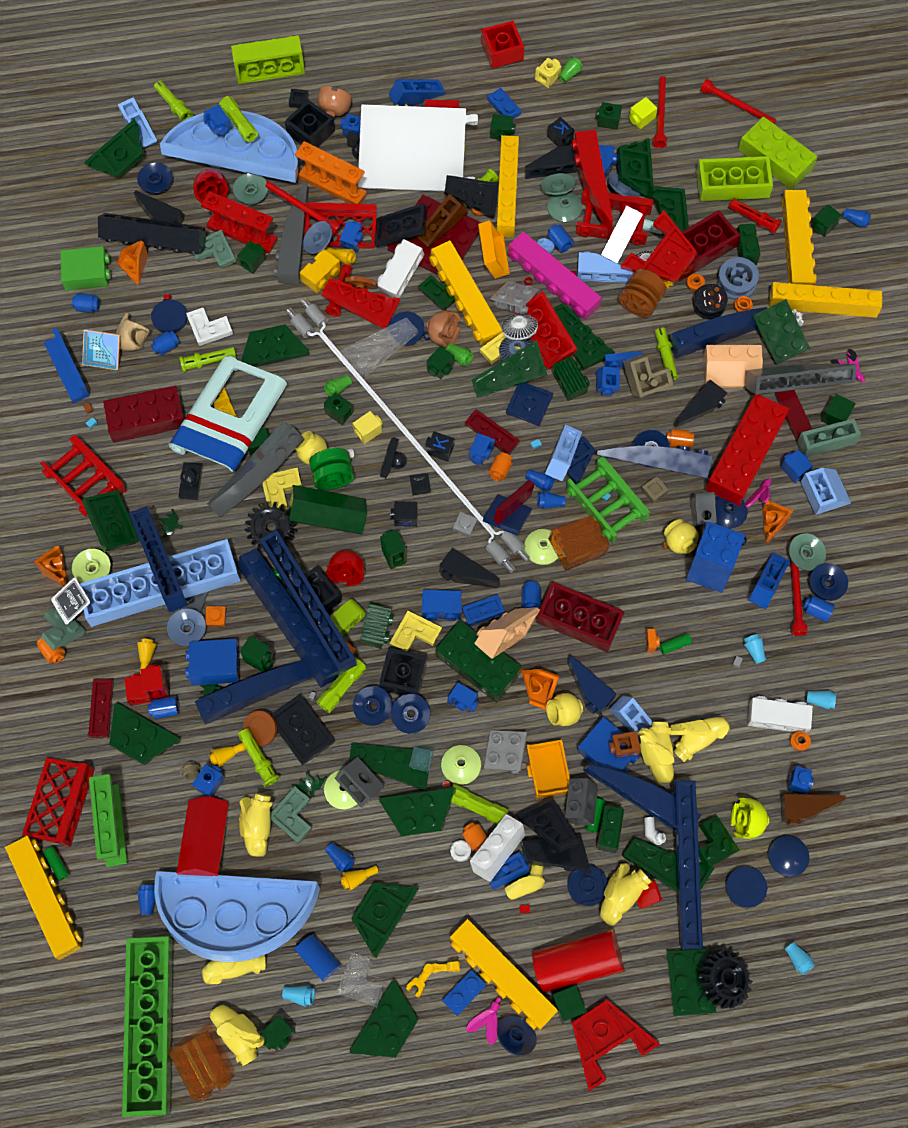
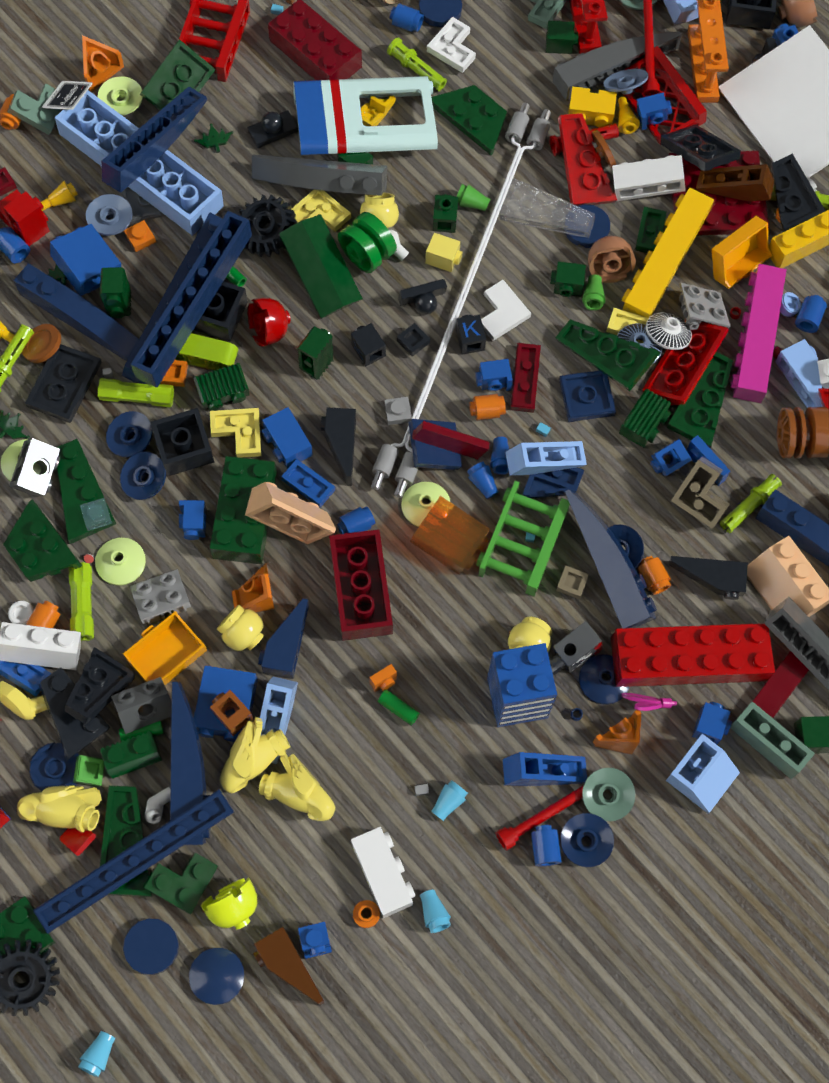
camera: 55 degrees right, 0 degrees up
(437, 412) = (508, 312): none -> white tile
(603, 863) = (89, 771): none -> bright green tile

